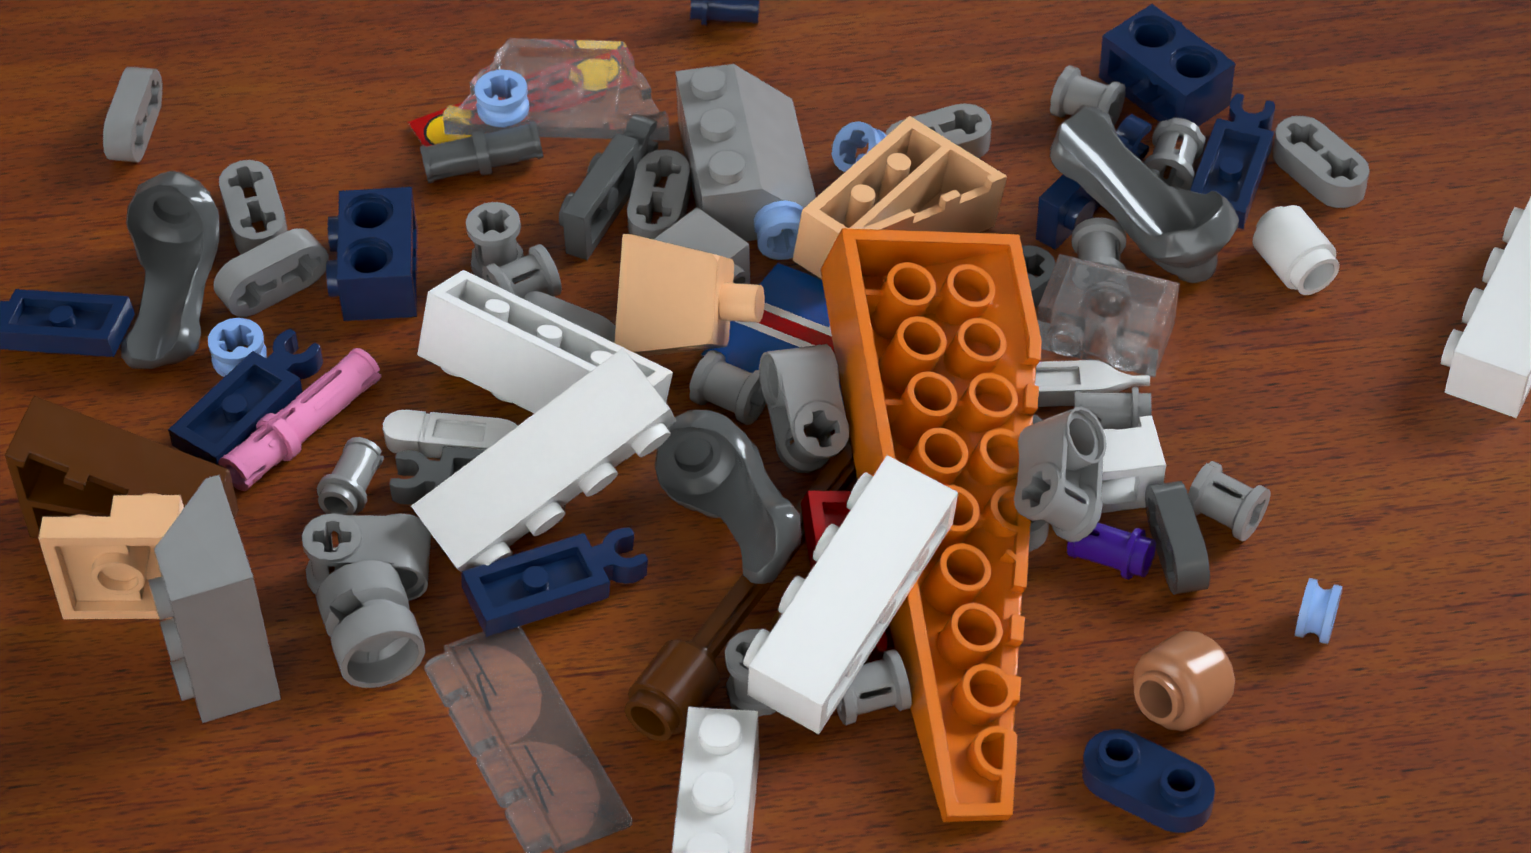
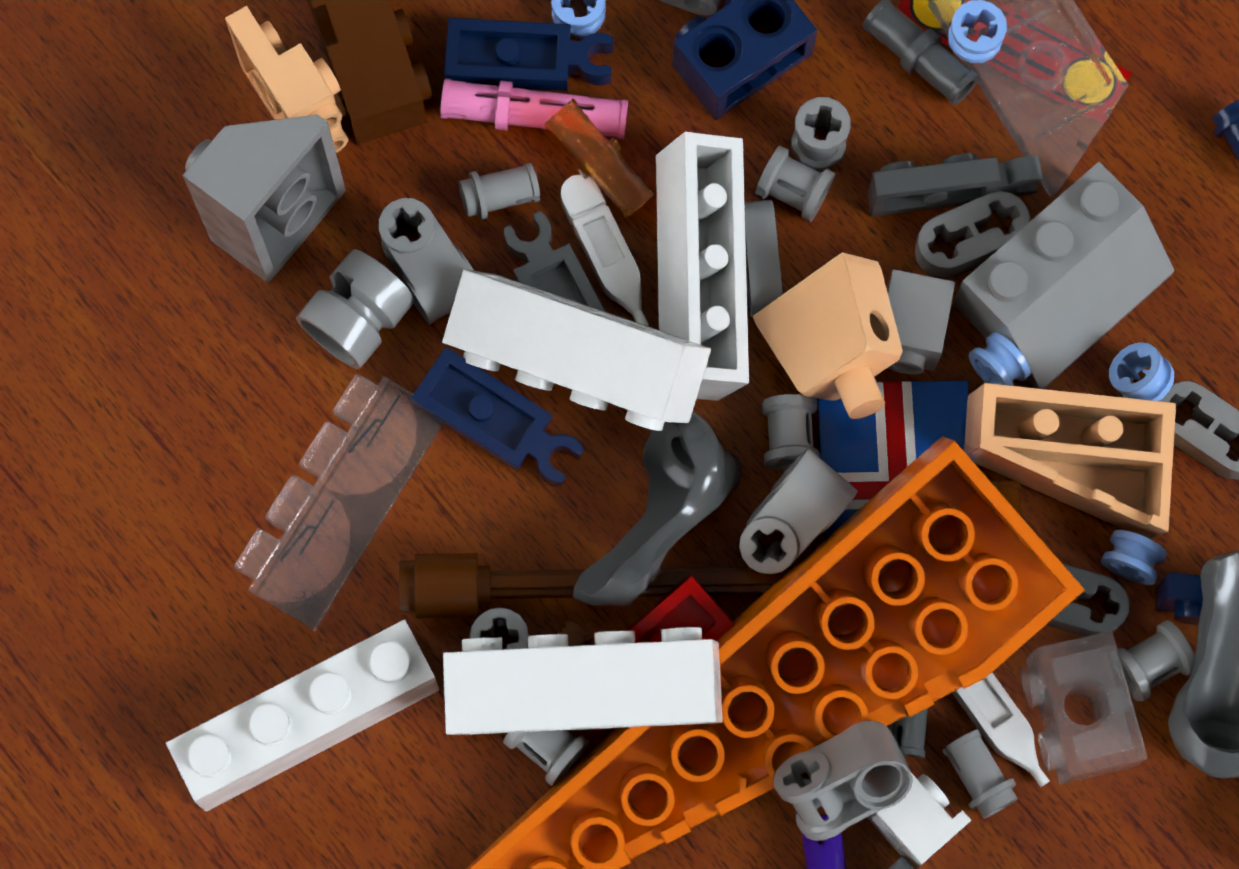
camera: 55 degrees right, 25 degrees up
(387, 388) = (599, 158): none -> clear orange pin
(1007, 218) = (1134, 557): none -> light blue bush

